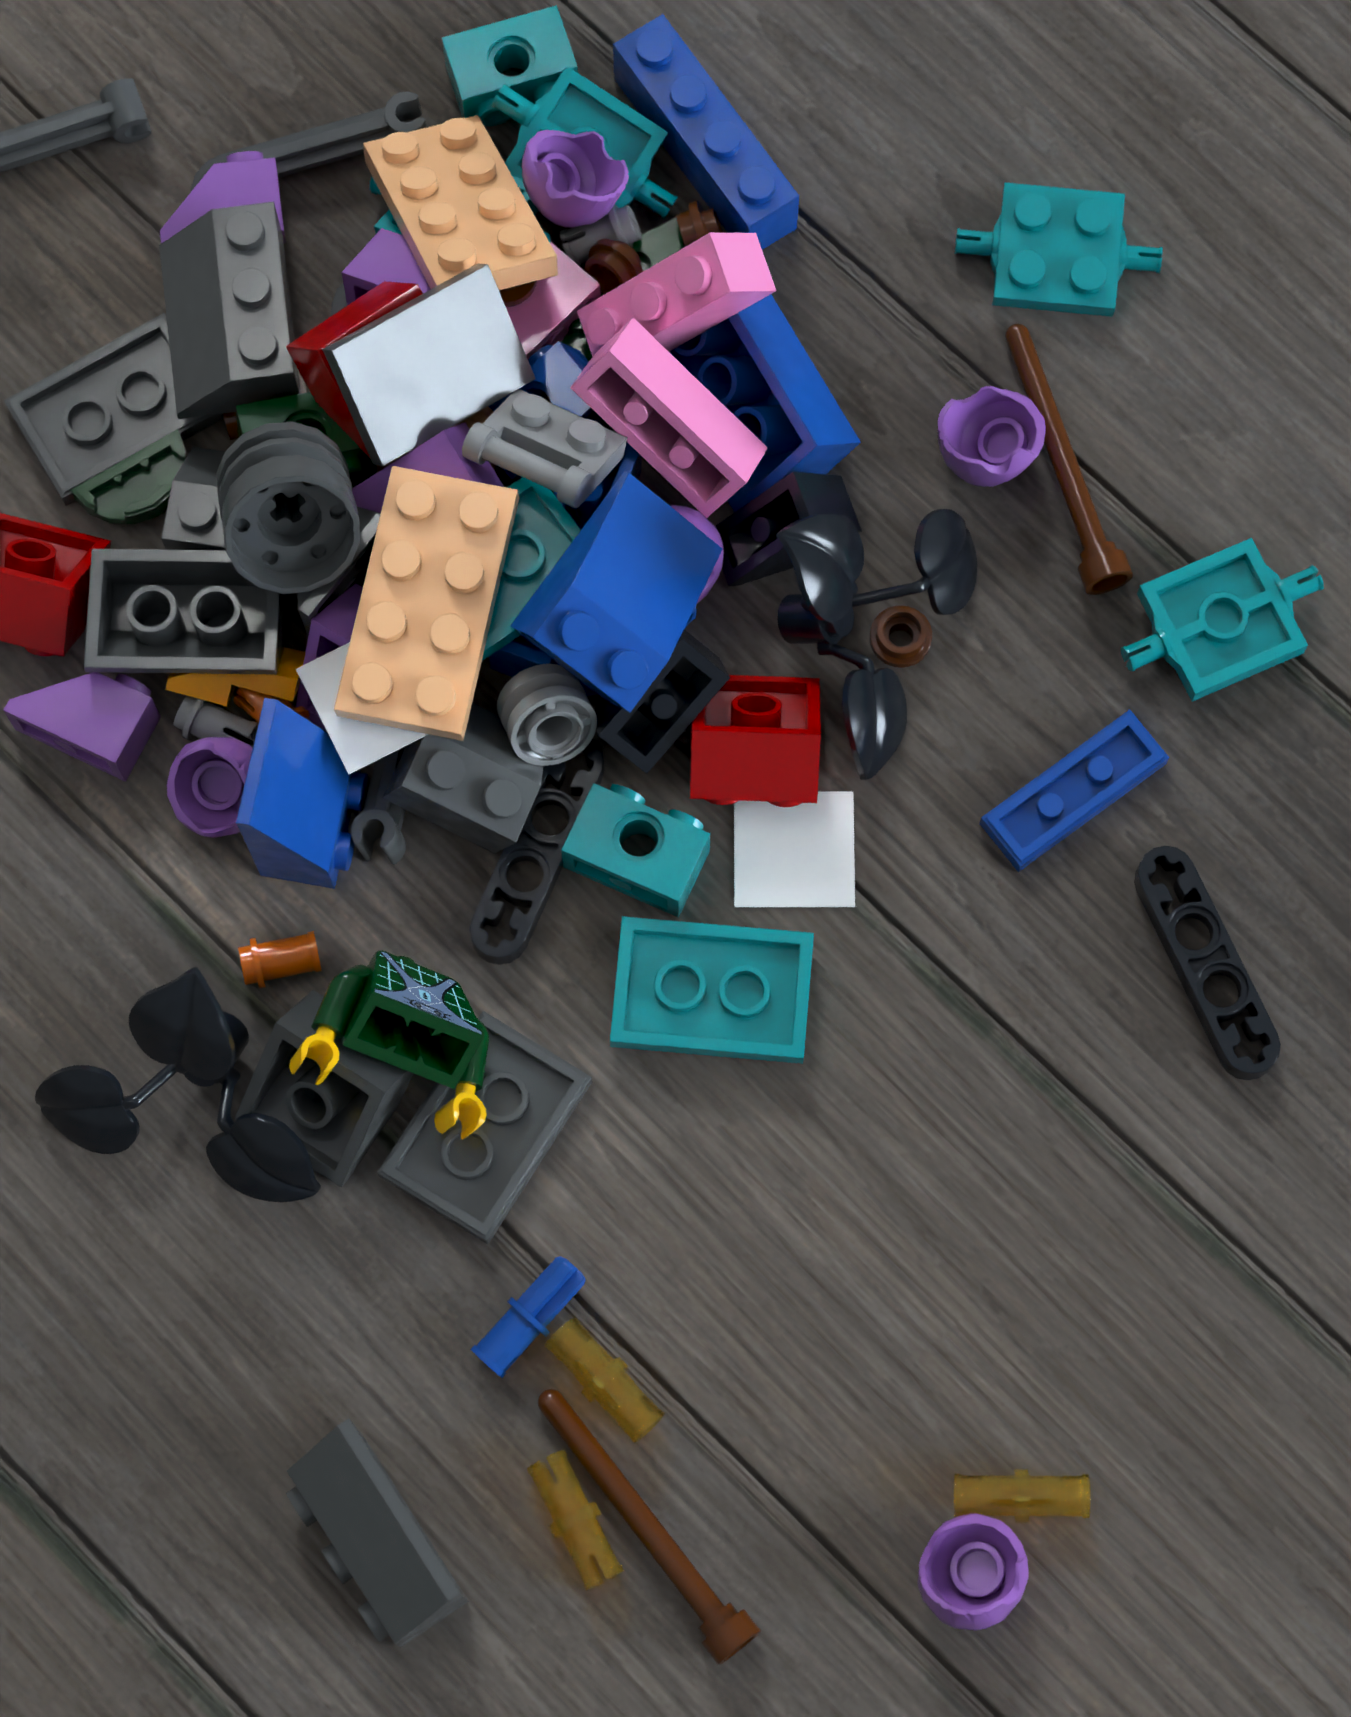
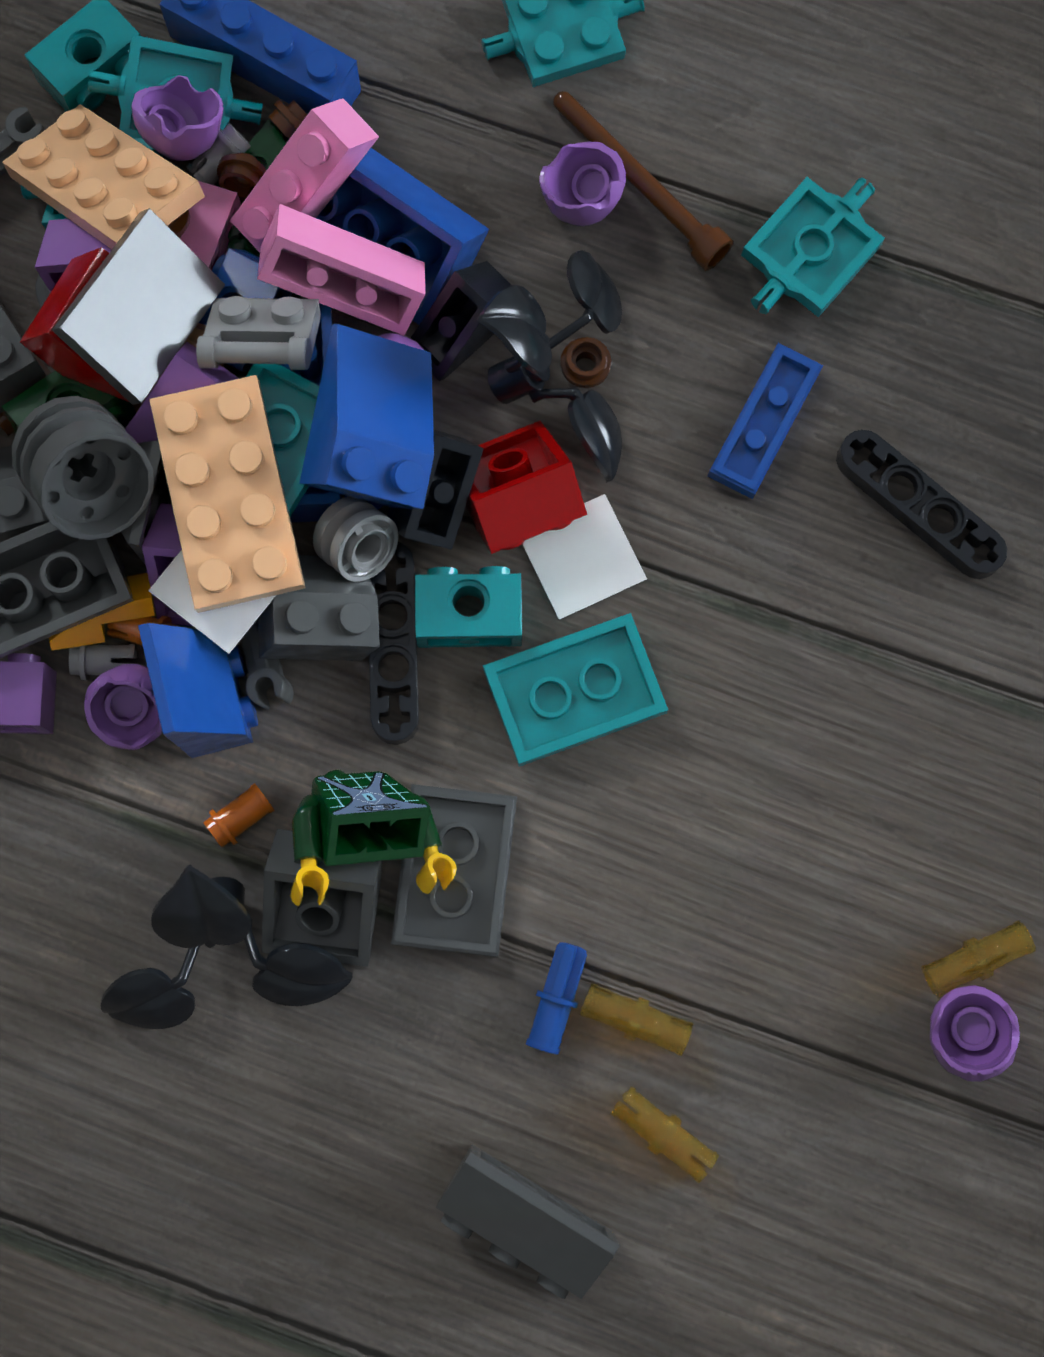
camera: 30 degrees left, 5 degrees up
(722, 1625) = (811, 1160): reddish brown piece -> none

